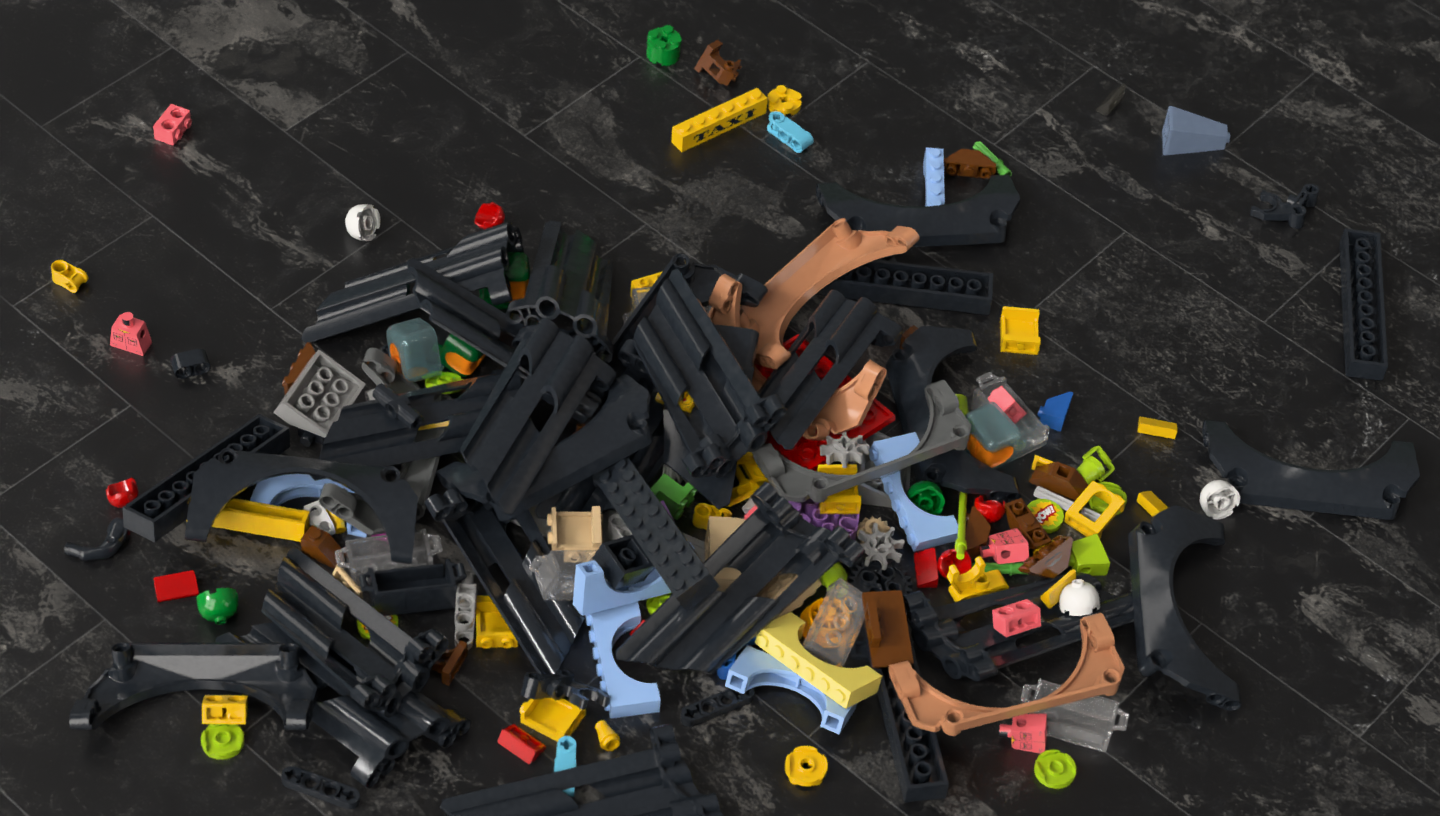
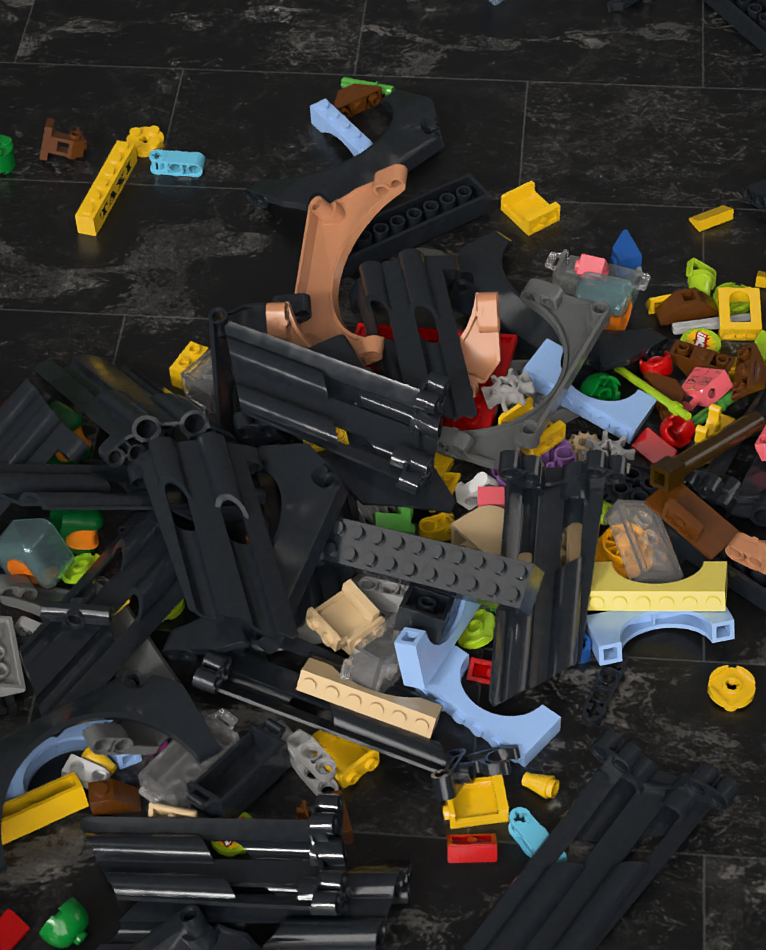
camera: 30 degrees left, 0 degrees up
(560, 627) = (407, 713): none -> tan arch
(894, 583) = (671, 471): none -> dark brown brick

